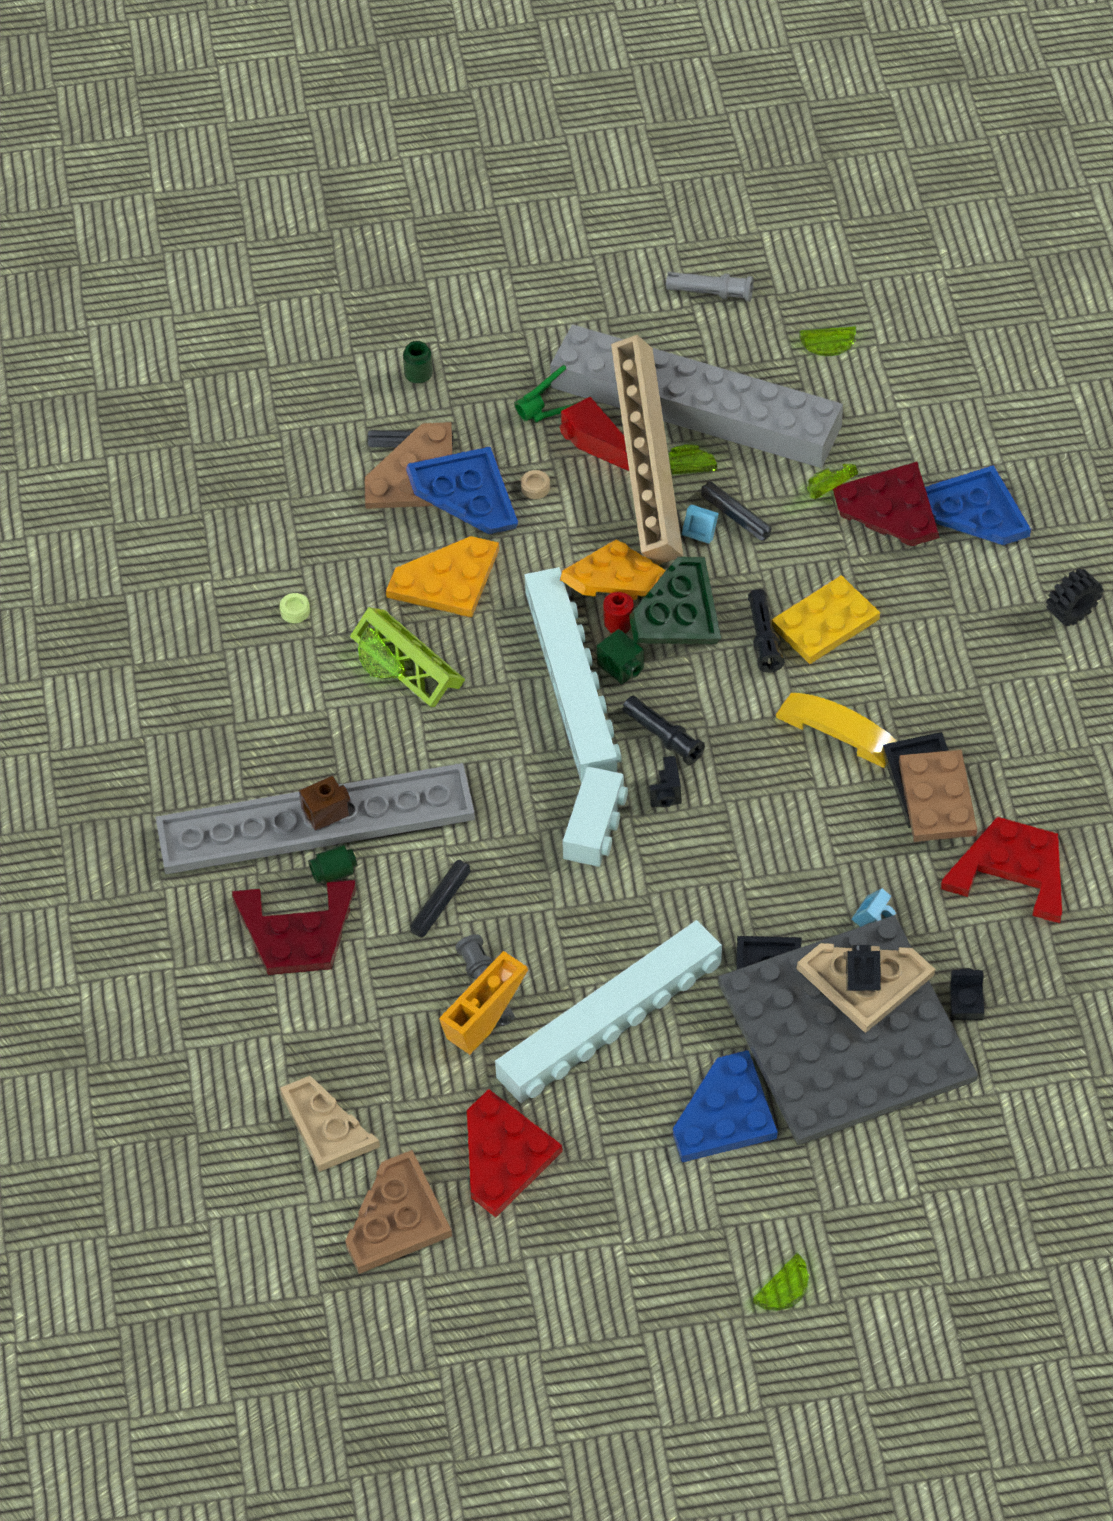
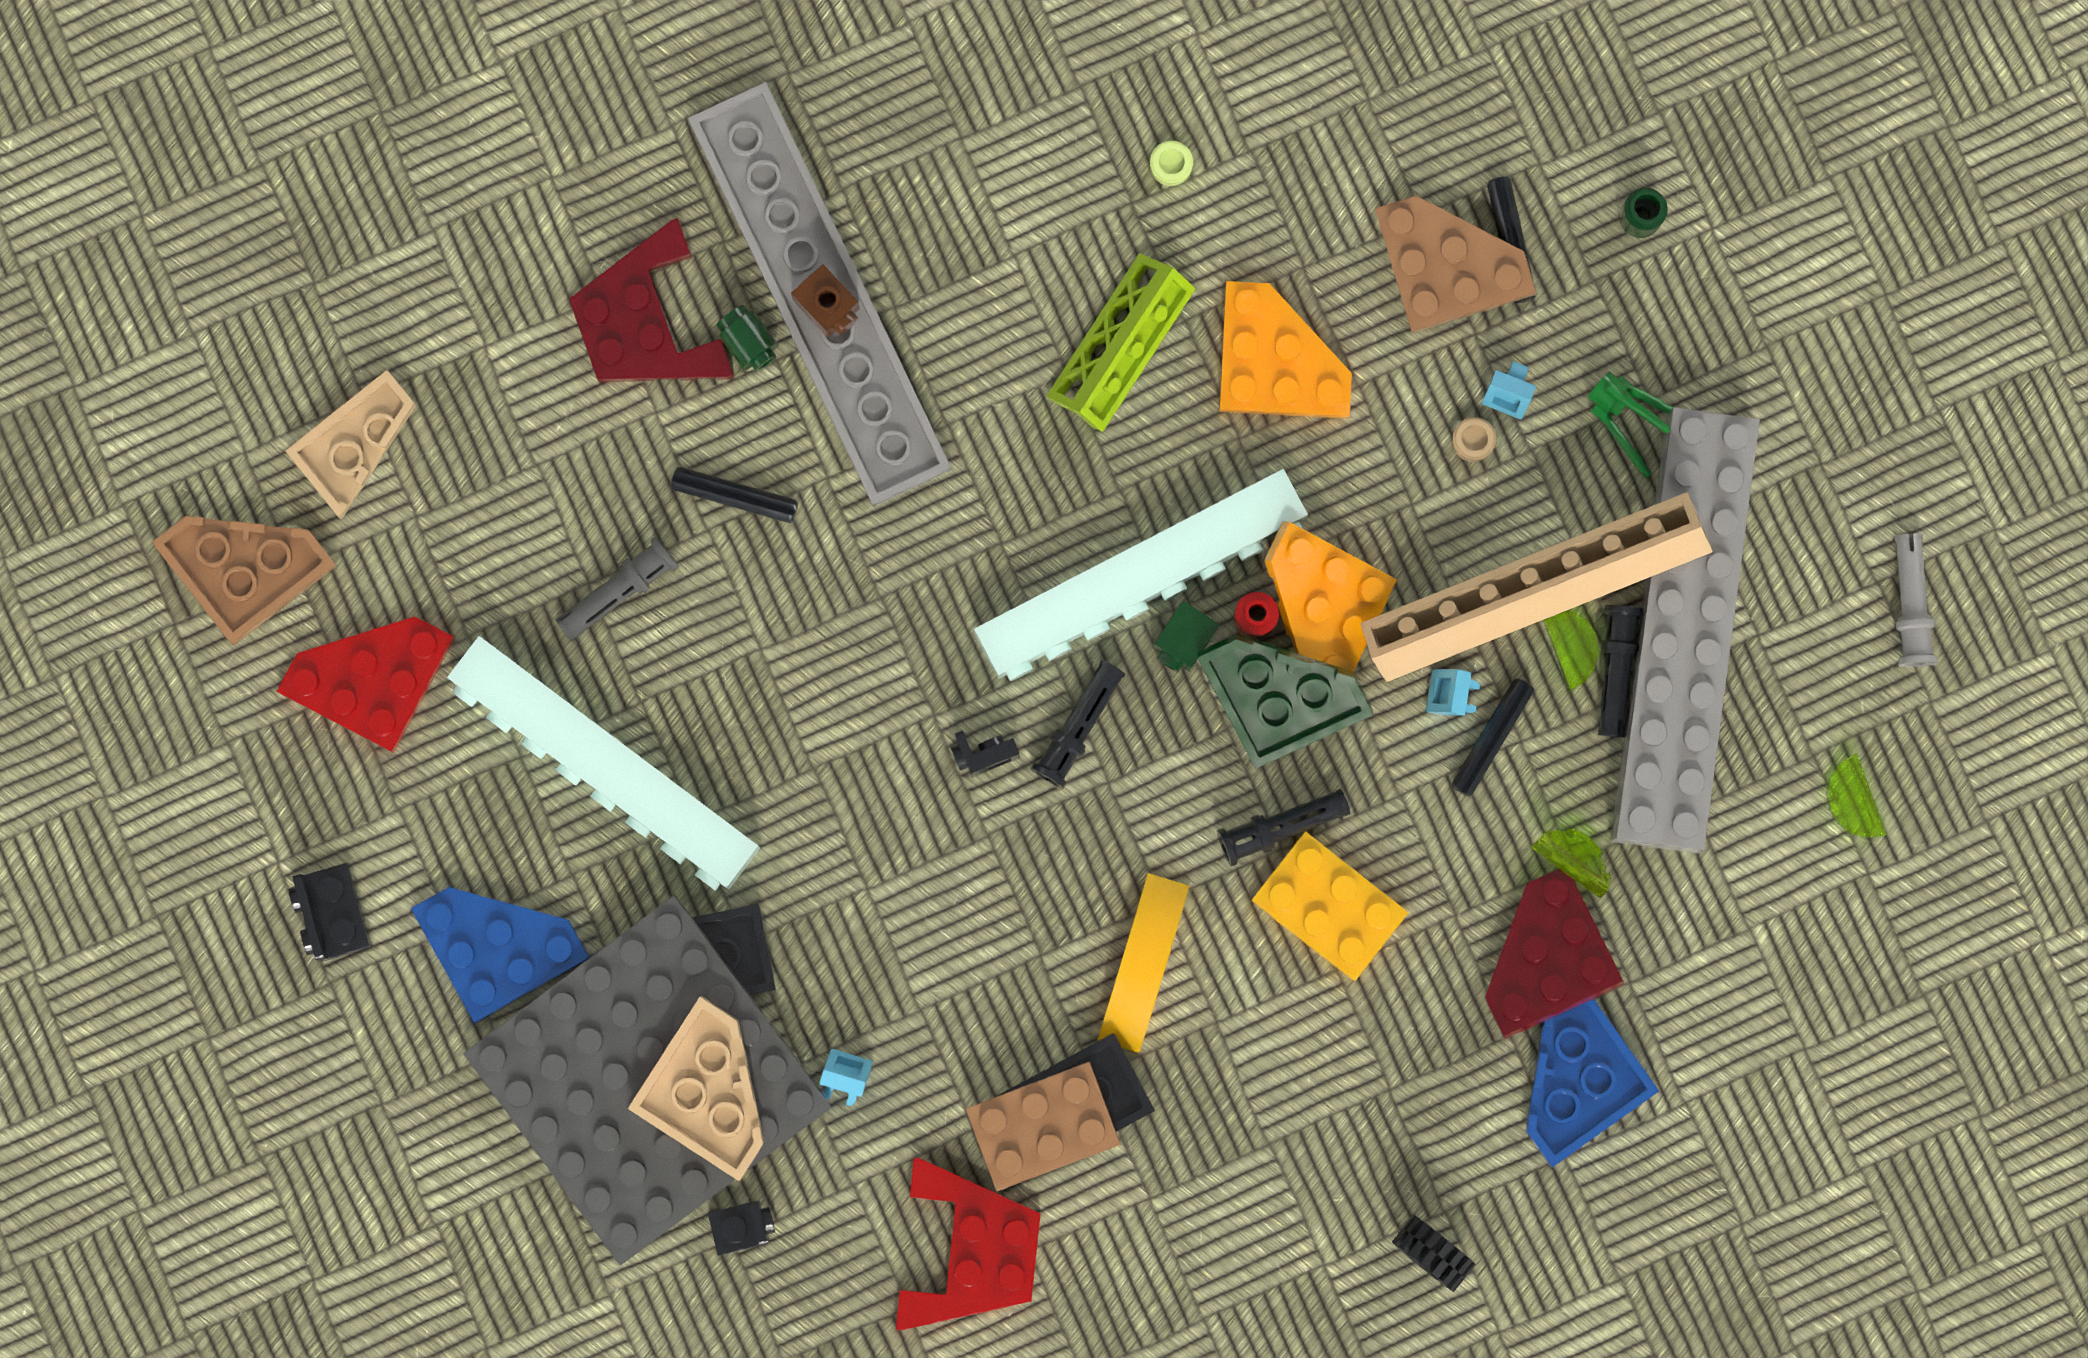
camera: 70 degrees right, 30 degrees up
(377, 657) = (1103, 303): clear neon green tile -> none
(466, 487) = (1421, 345): blue plate -> none
(483, 1003) = (561, 597): light orange slope -> none
(511, 455) = (1509, 391): none -> medium azure tile
(594, 432) = (1584, 494): red slope -> none
(594, 816) = (907, 668): light aqua brick -> none
(671, 1211) = (330, 913): none -> black bracket
(697, 433) = (1619, 649): none -> black pin
(785, 1287) = (257, 1082): clear neon green tile -> none
(862, 969) = (701, 1085): black bracket -> none

